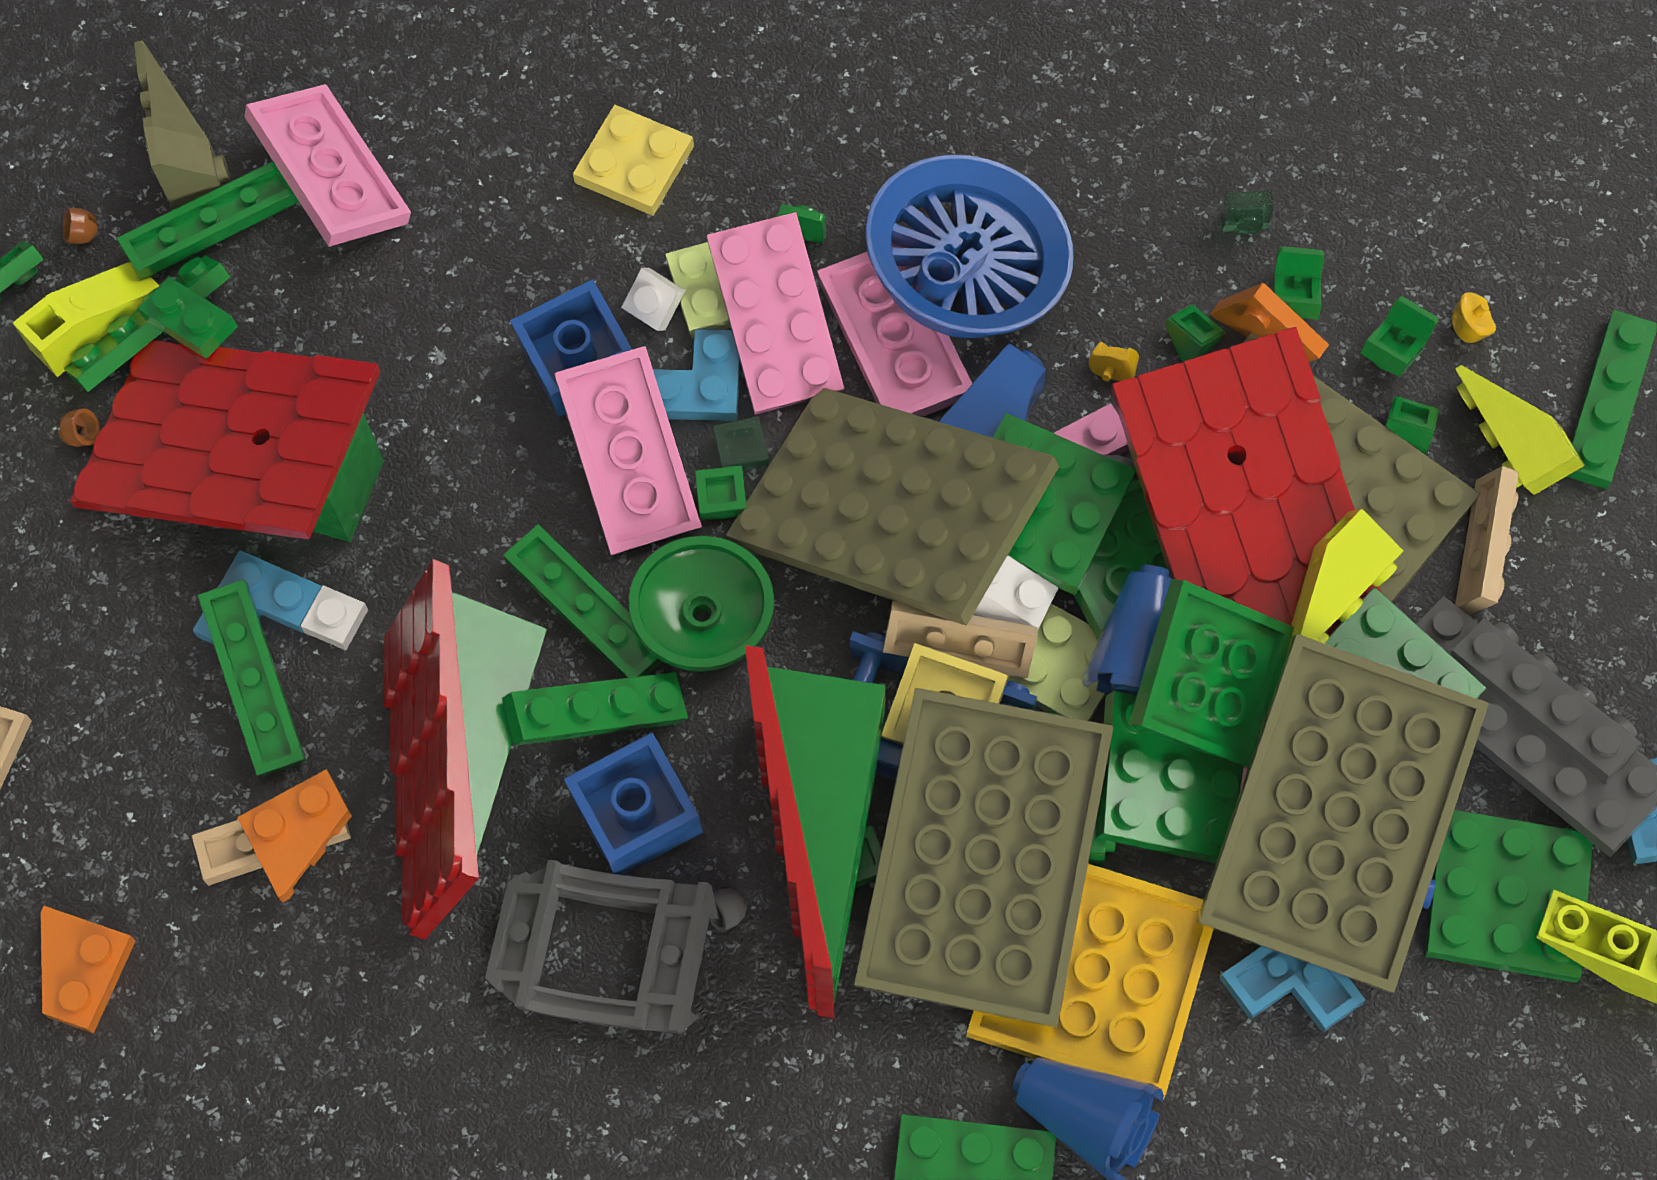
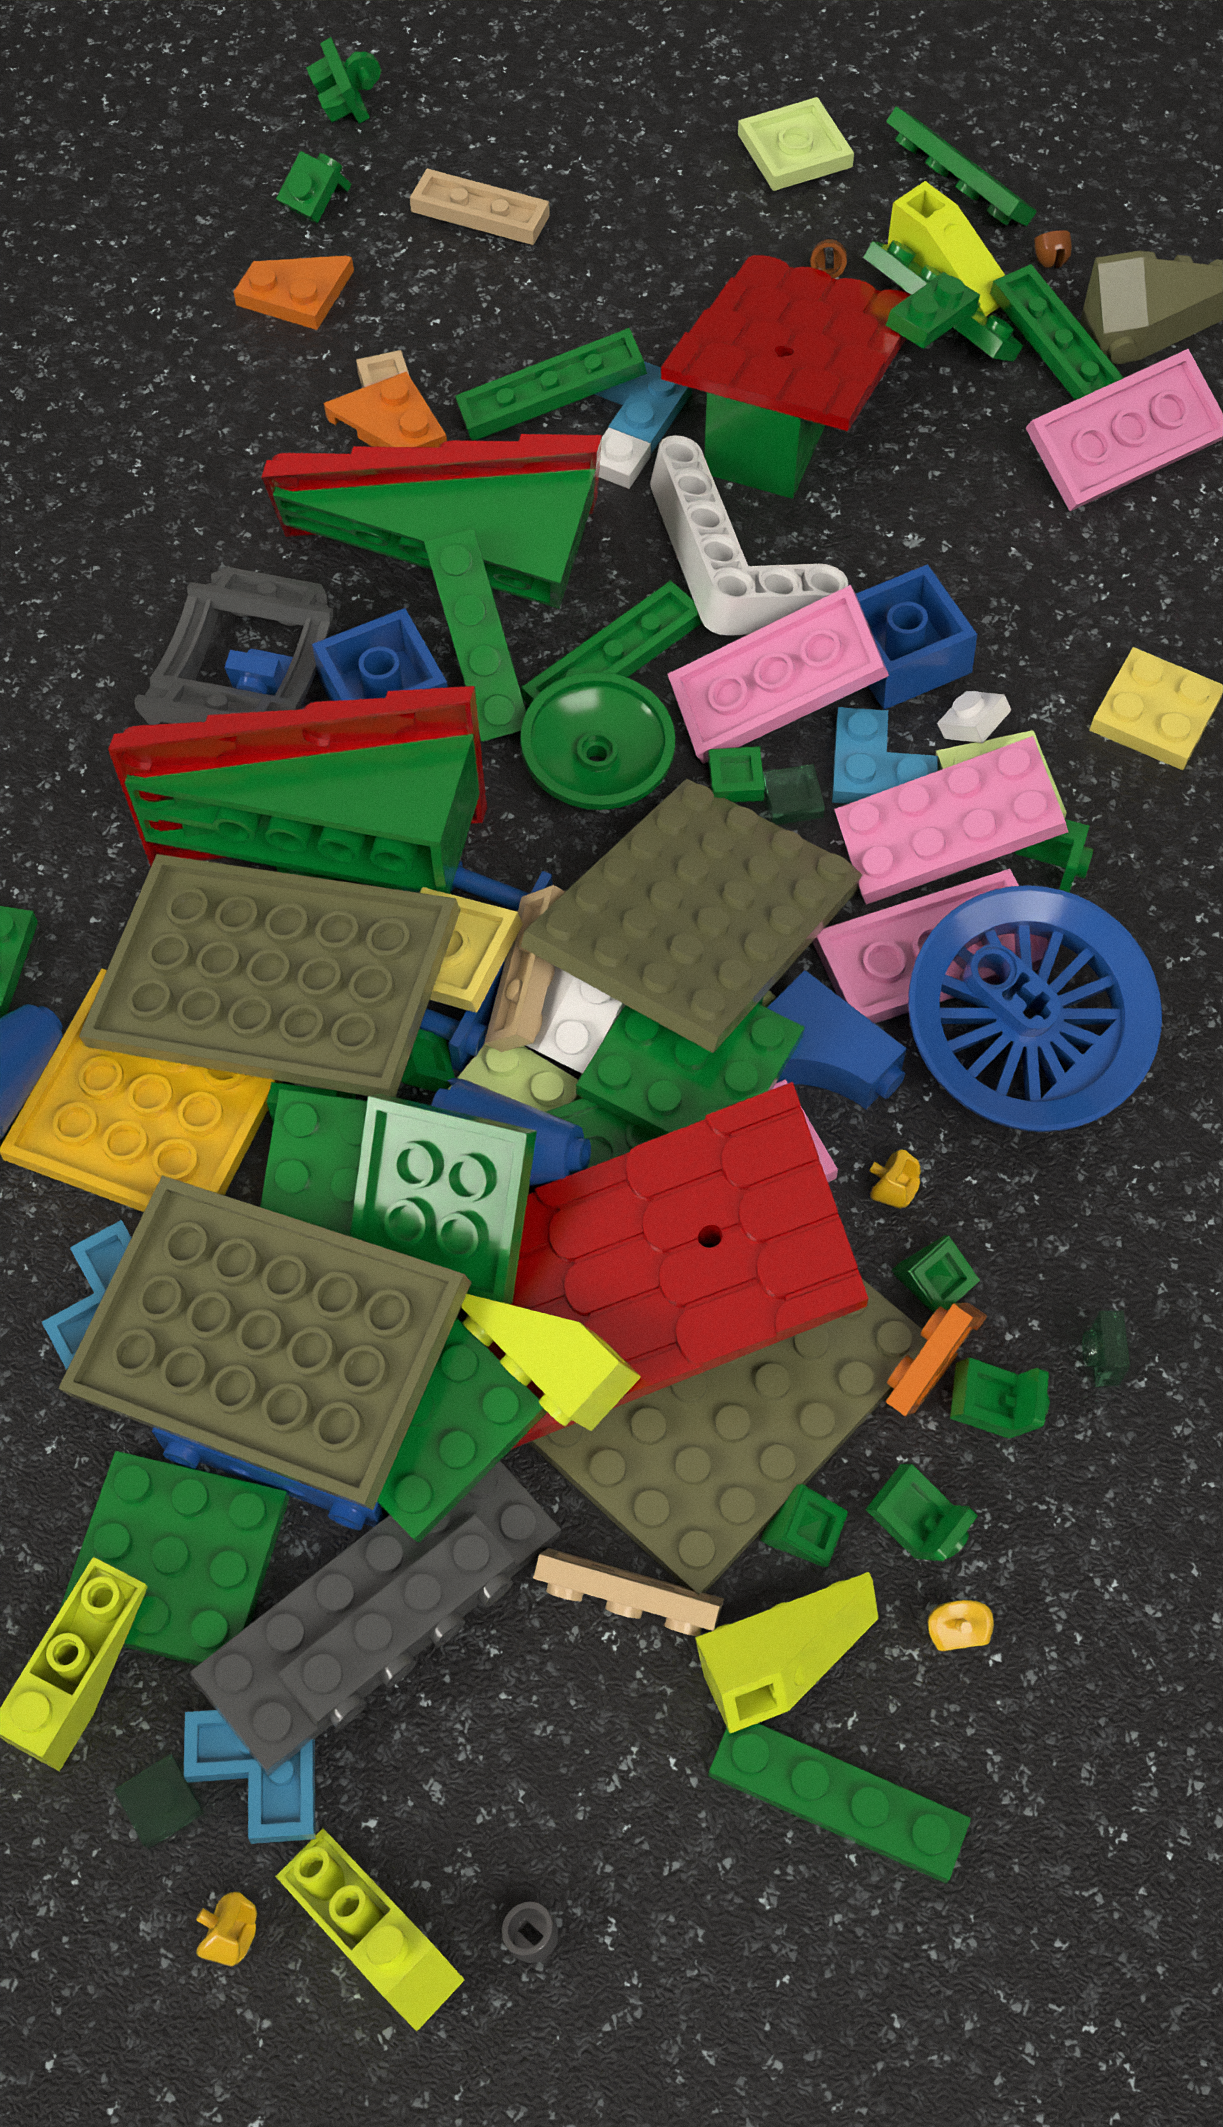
camera: 90 degrees right, 5 degrees down
(469, 518) = (723, 586): none -> white beam
(619, 926) = (257, 670): none -> blue bracket

